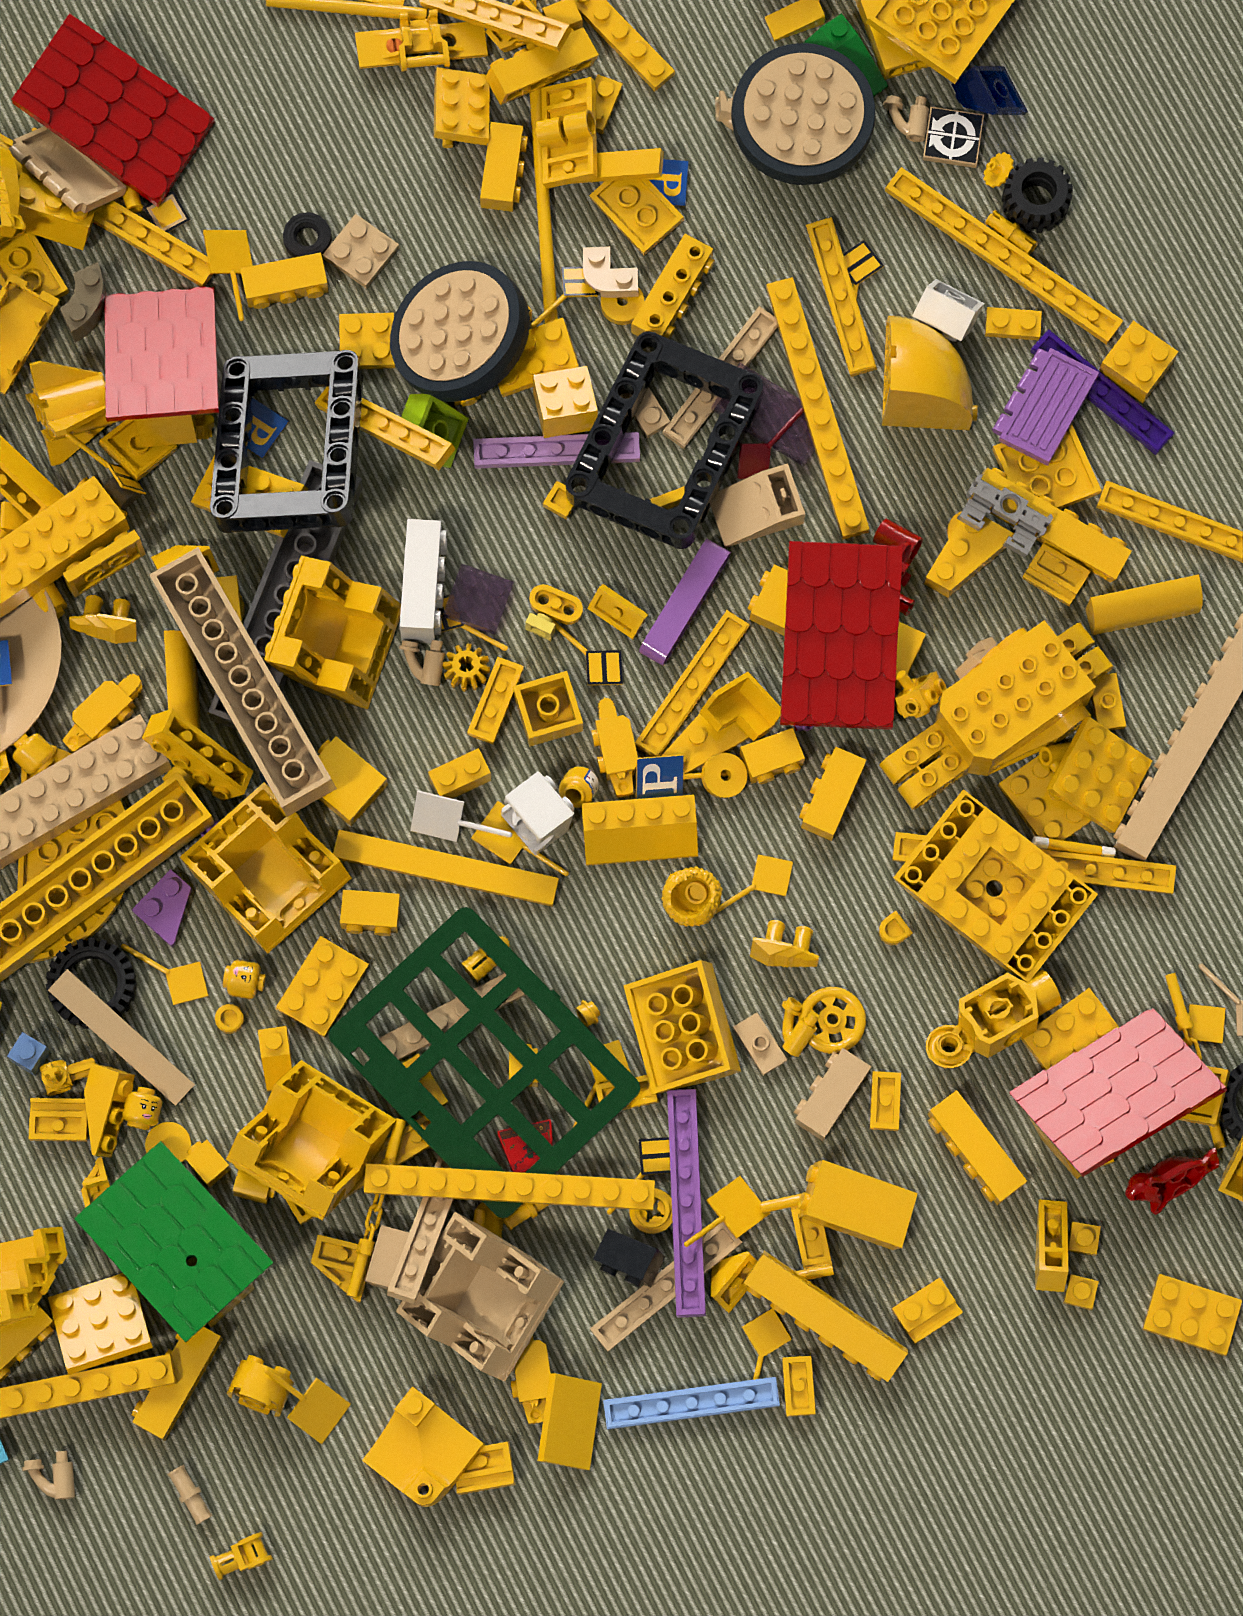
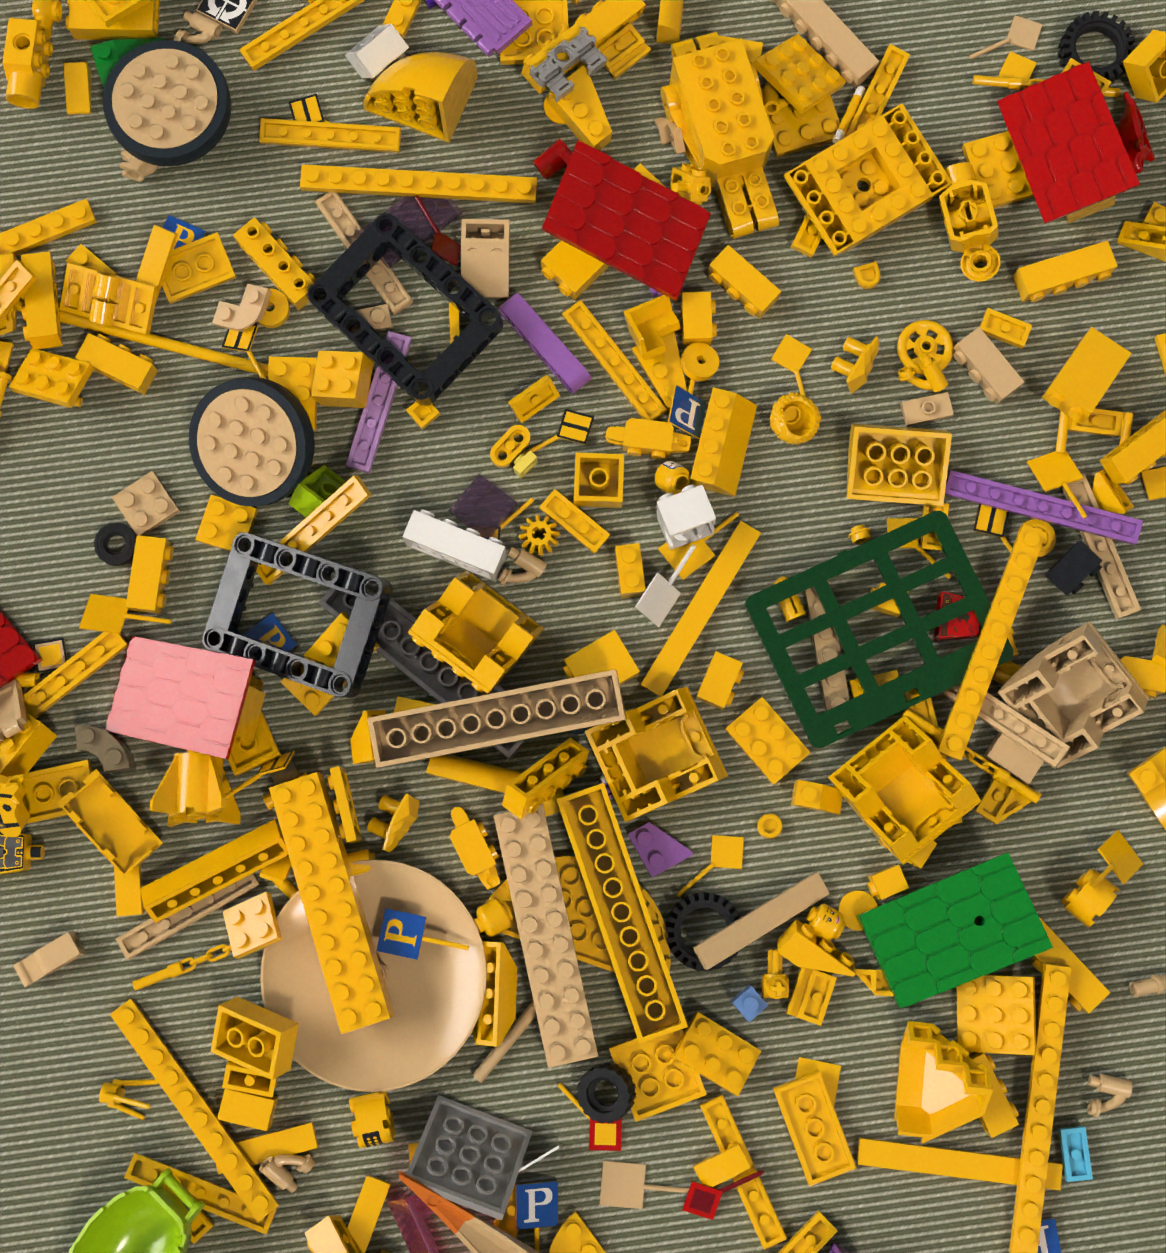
camera: 70 degrees left, 5 degrees up
(243, 979) = (742, 803): yellow head -> none

